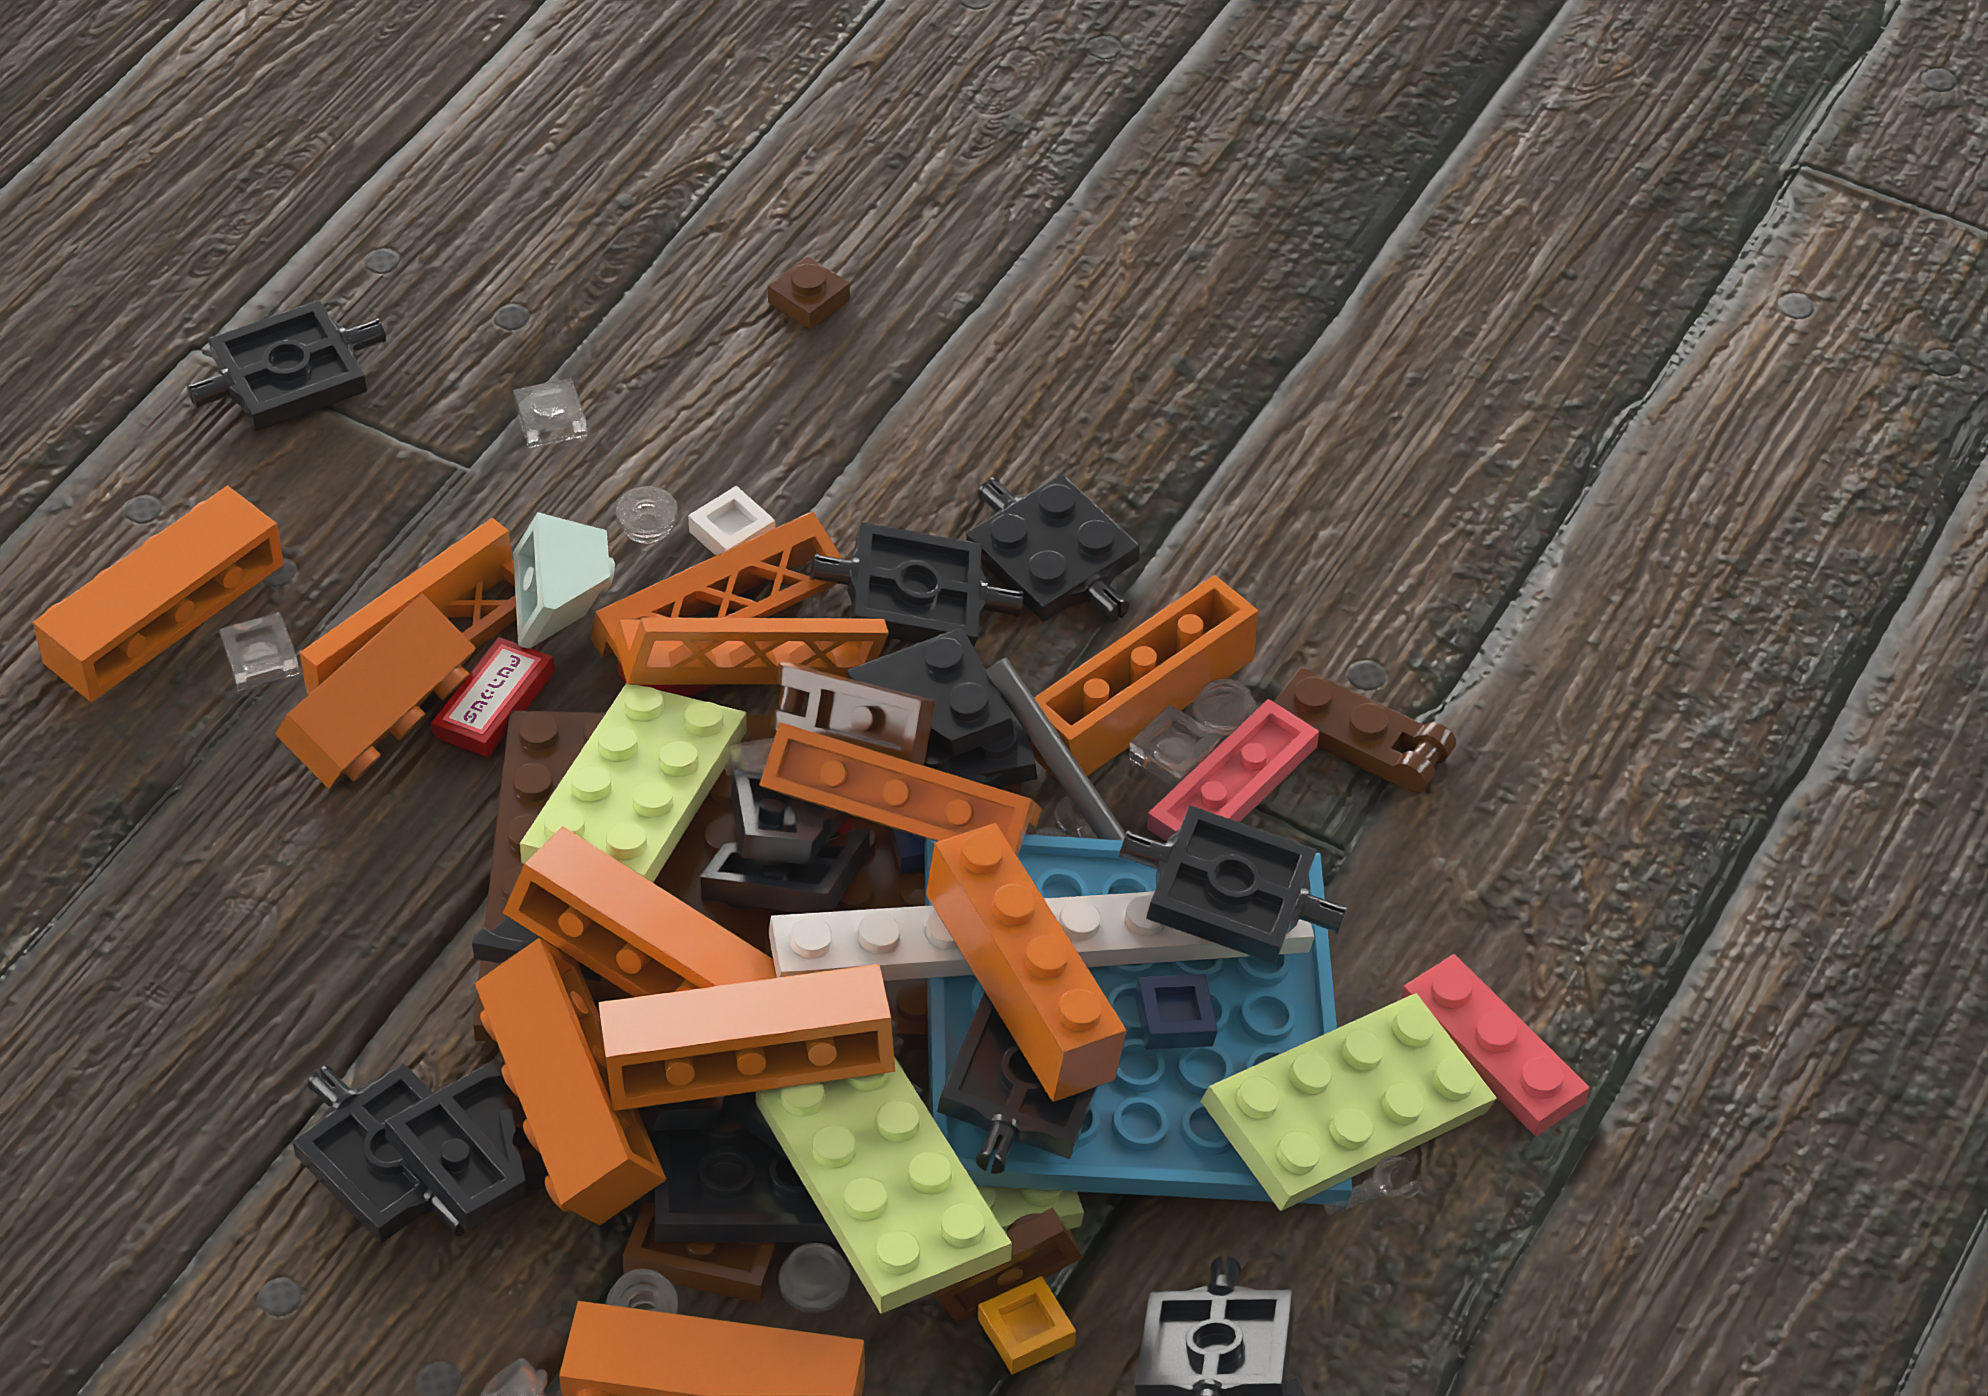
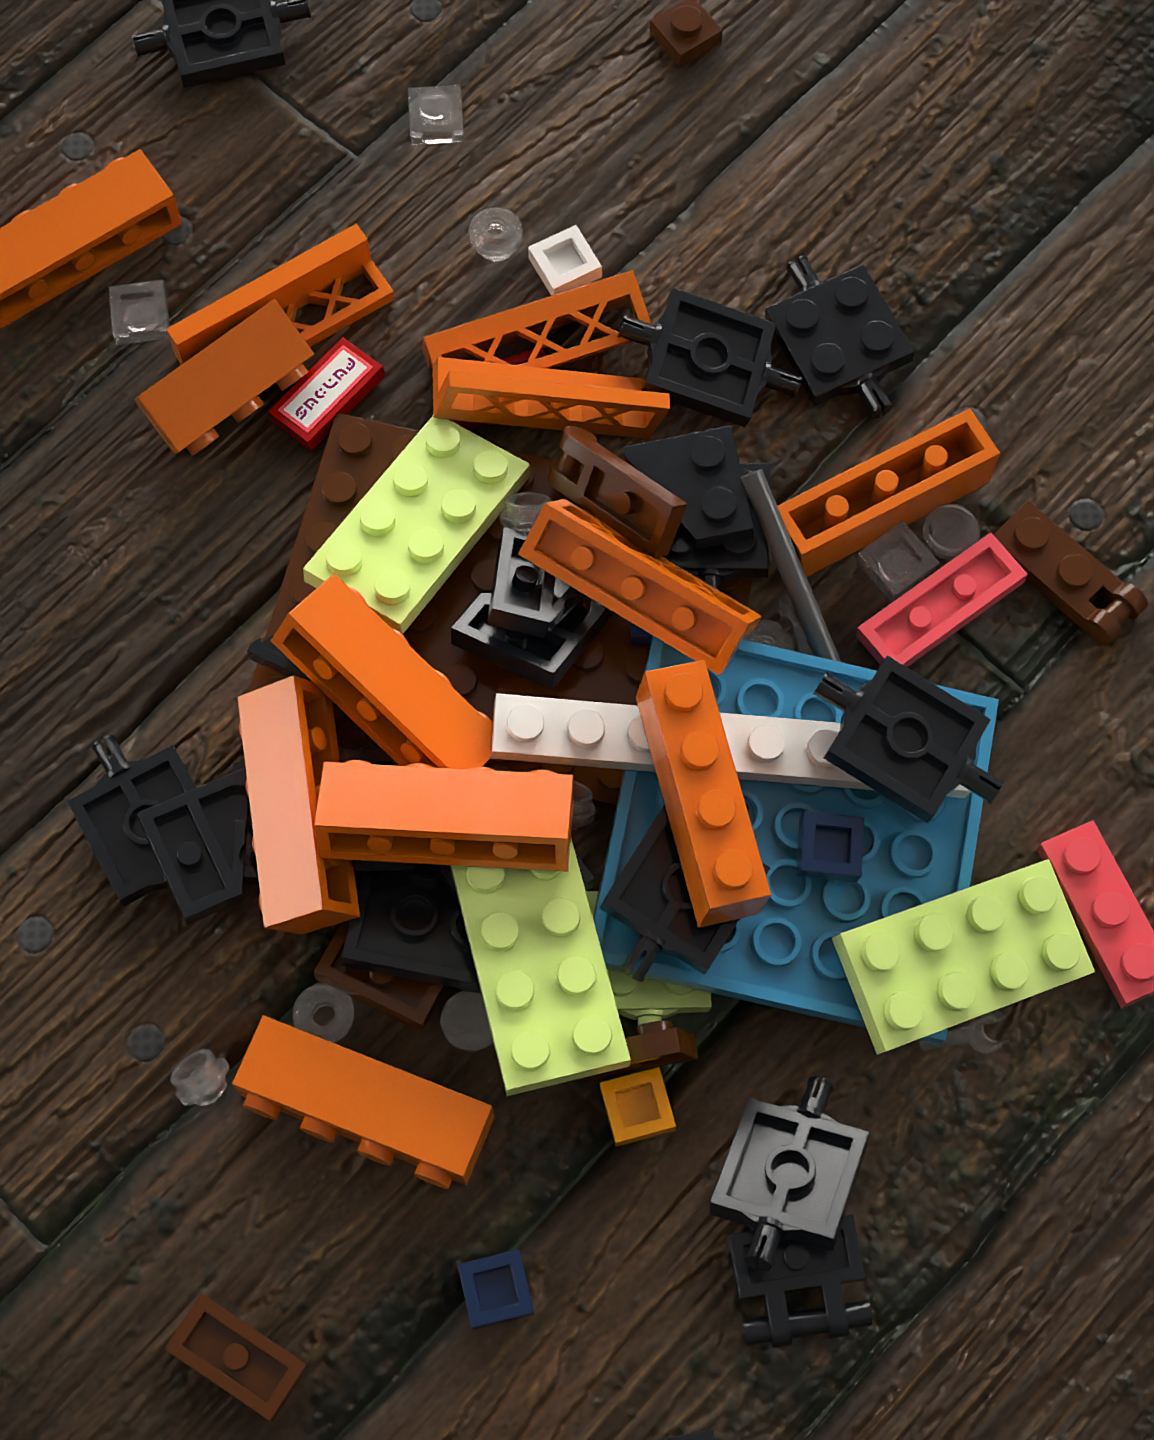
camera: 15 degrees right, 20 degrees up
(558, 575) = (402, 289): light aqua slope -> none

